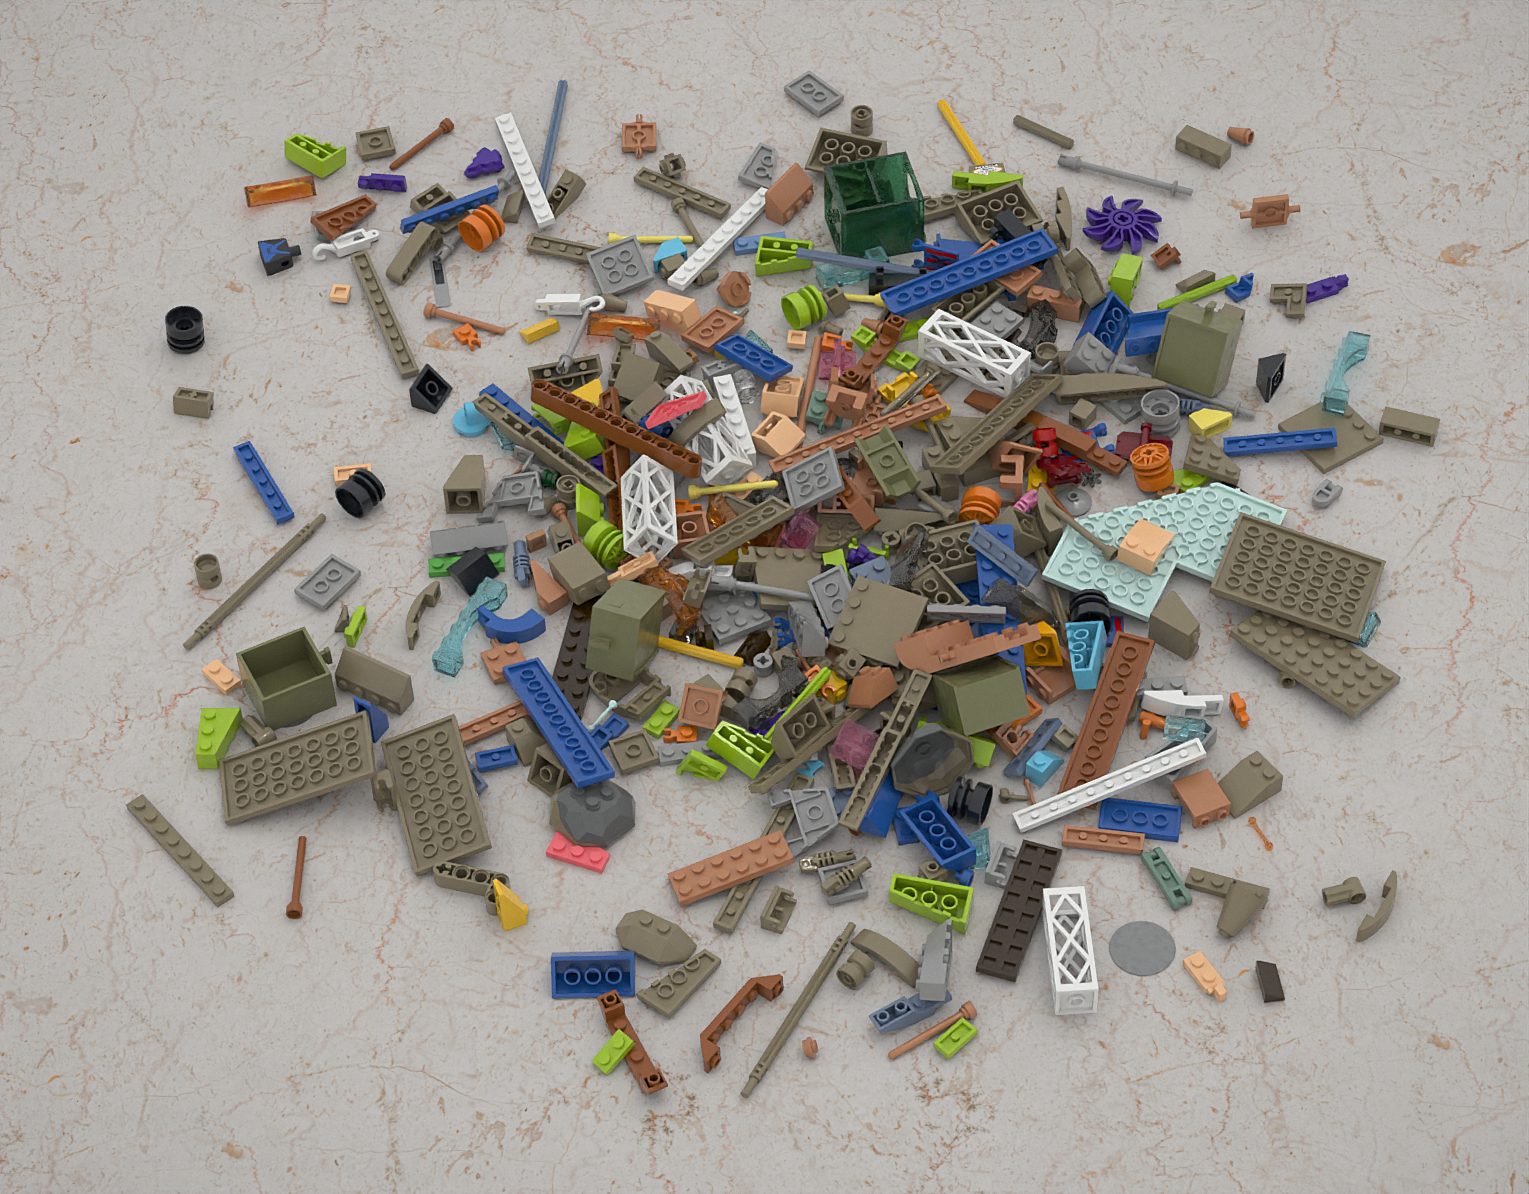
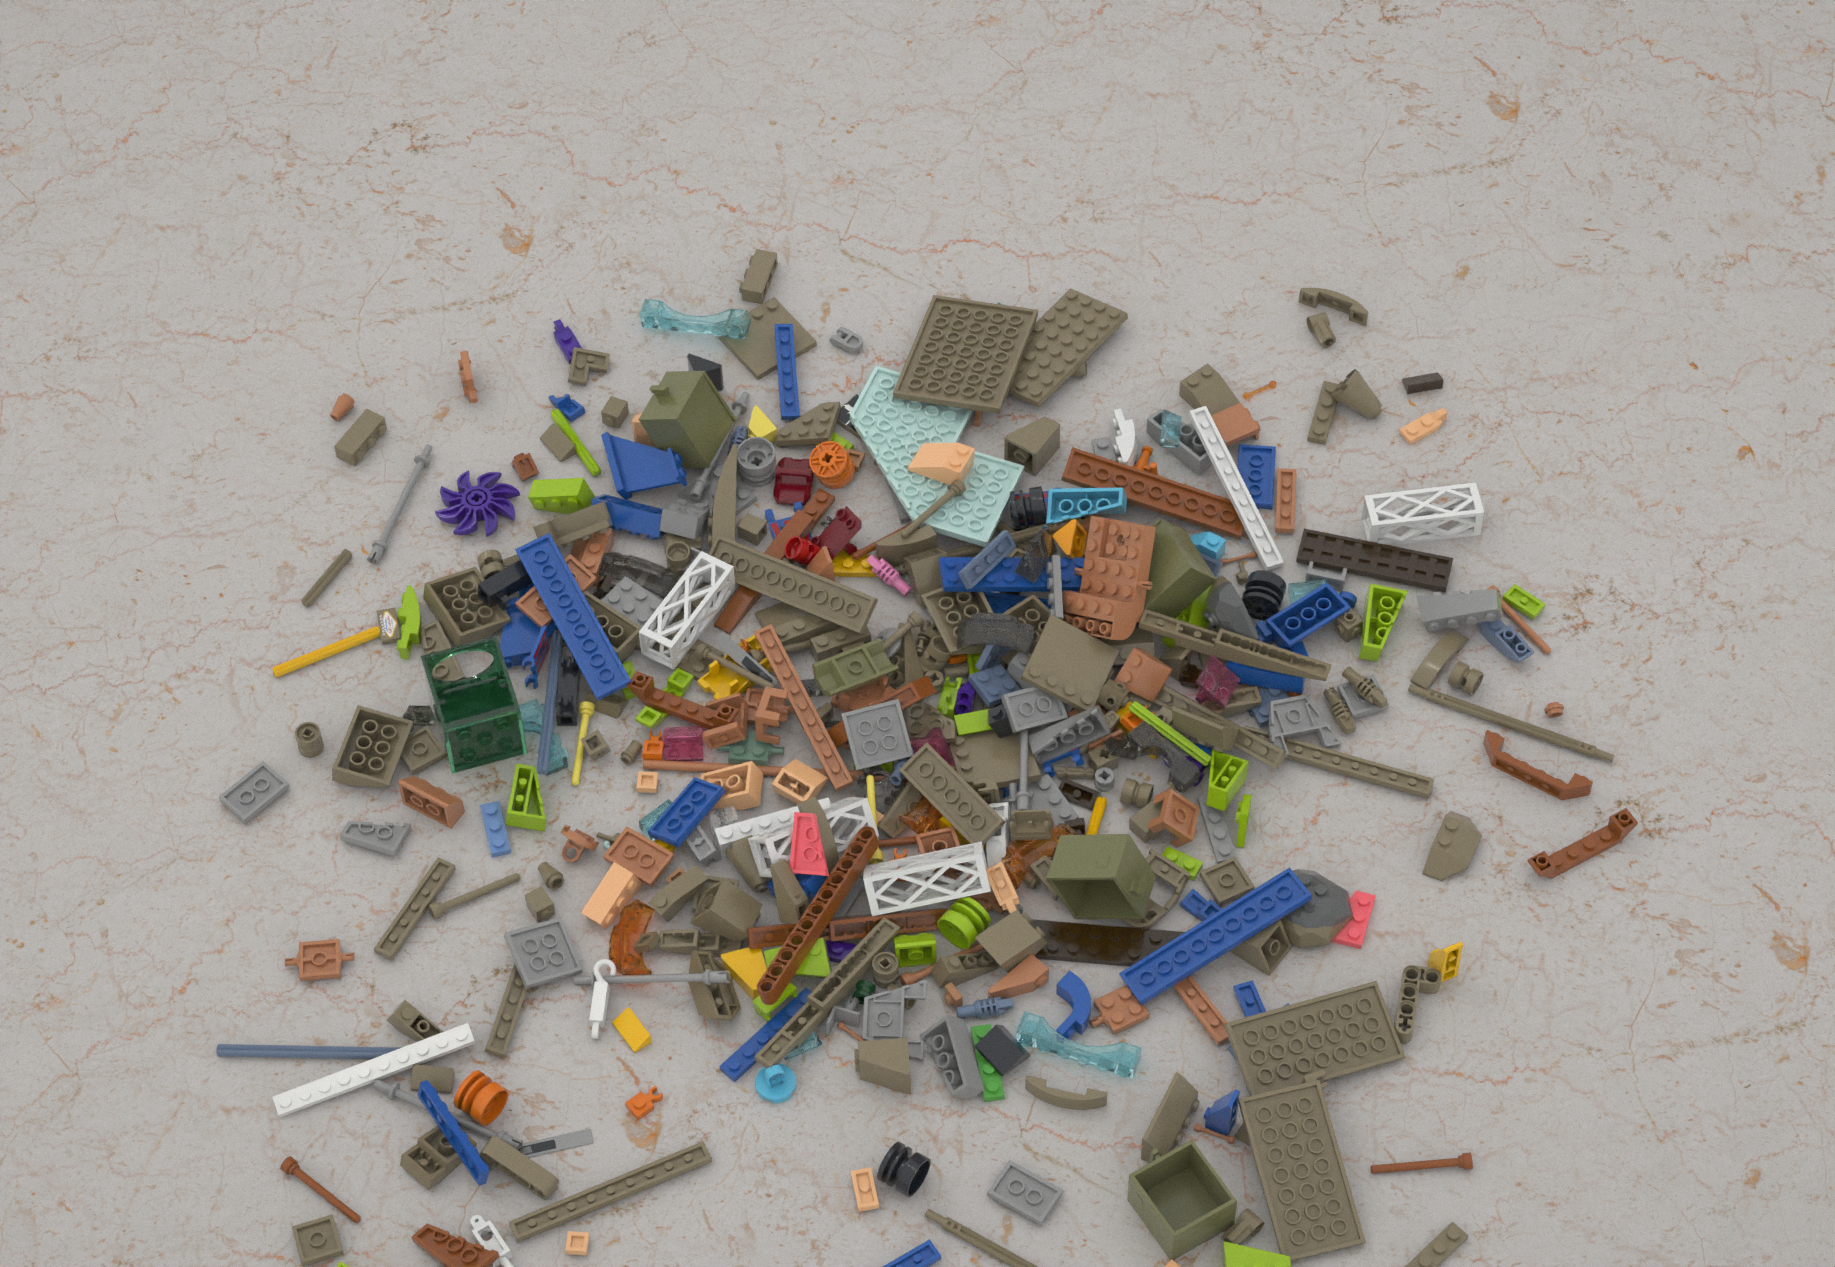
camera: 95 degrees left, 5 degrees up
(343, 620) = (1078, 1168): dark tan slope -> none
(357, 623) = (1088, 1154): lime plate -> none
(383, 182) = (390, 1223): dark purple hinge -> none
(429, 390) = (735, 1128): black slope -> none
(431, 310) = (604, 1143): nougat piece -> none
(484, 163) = (358, 1115): dark purple rock -> none
(525, 738) = (1223, 975): dark tan slope -> none
(592, 973) = (1501, 888): blue slope -> none
(612, 705) = (1178, 898): light aqua hinge -> none
(613, 1052) = (1589, 862): lime plate -> none
(614, 303) = (591, 958): dark tan cone -> none
(650, 239) = (490, 968): light yellow piece -> none
(667, 250) = (517, 909): medium azure slope -> none
(675, 989) = (1502, 819): dark tan wing -> none
(677, 162) = (376, 916): dark tan brick -> none
(681, 735) = (1200, 843): orange plate -> none
(719, 241) = (498, 858): white plate -> none
(730, 868) = (1364, 784): nougat plate -> none
(778, 910) = (1403, 748): dark tan hinge -> none
(803, 307) = (609, 771): lime wheel -> none
(873, 325) = (628, 712): nougat cone -> none
(980, 504) = (895, 602): orange wheel -> none
(1012, 481) = (855, 573): nougat panel -> none
(1063, 217) = (463, 552): dark tan slope -> none
(1075, 501) = (872, 534): light grey dish -> none
(1142, 948) = (1397, 472): flat silver sticker -> none
(1166, 878) = (1321, 454): sand green plate -> none
(1238, 709) = (1123, 402): orange plate -> none

